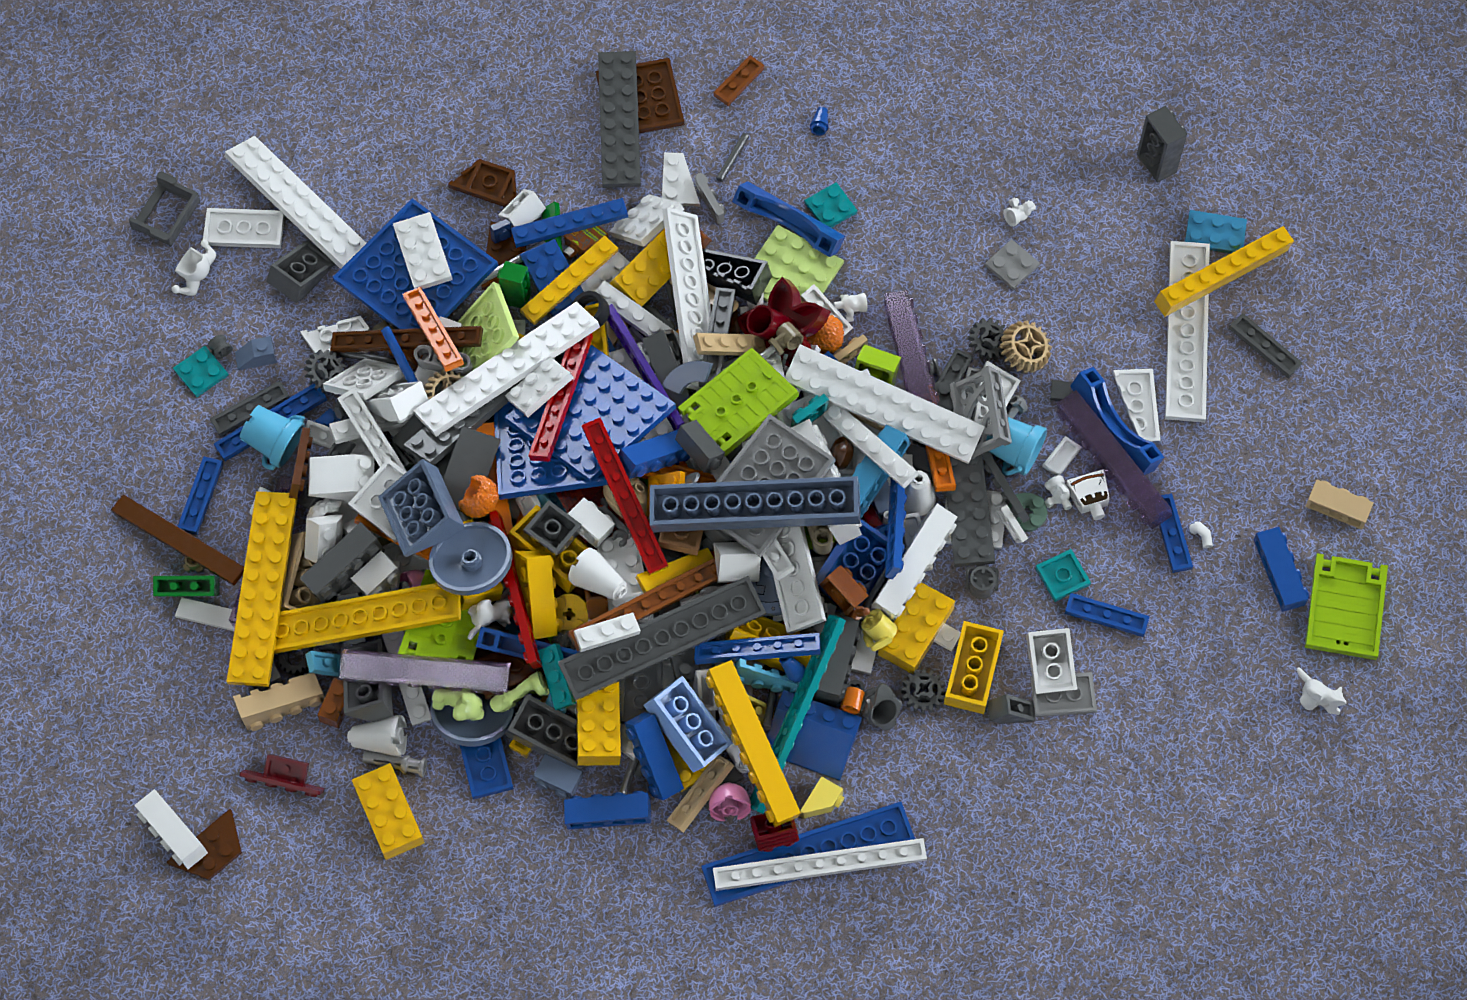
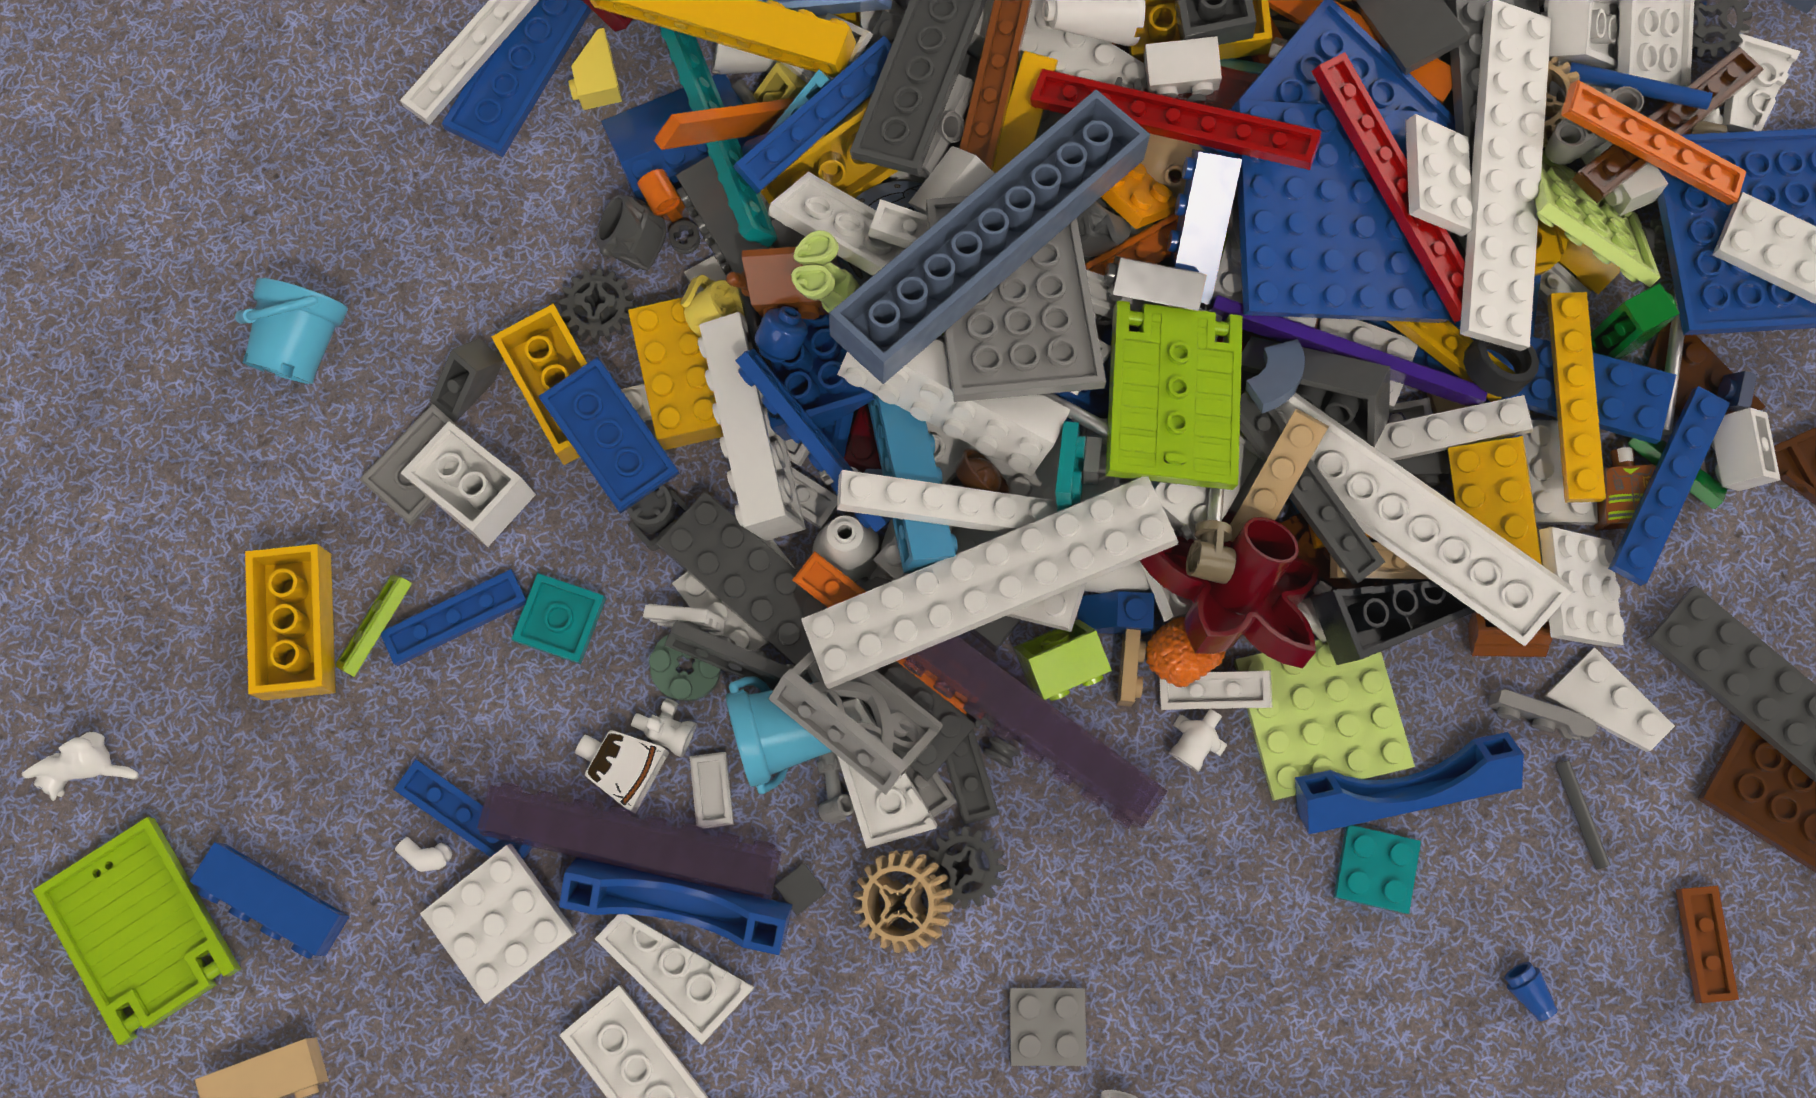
camera: 135 degrees right, 10 degrees up
(790, 409) = (1094, 461): none -> light grey plate
(798, 683) = (720, 123): none -> orange tile
(832, 560) = (818, 276): none -> yellowish green piece
(868, 573) = (781, 334): none -> blue head
(974, 616) = (609, 435): none -> blue tile
(1070, 795) = (289, 329): none -> medium azure piece
(1144, 640) = (373, 624): none -> lime tile
(1179, 669) = (289, 622): none -> yellow brick
(1194, 479) = (498, 923): none -> white plate

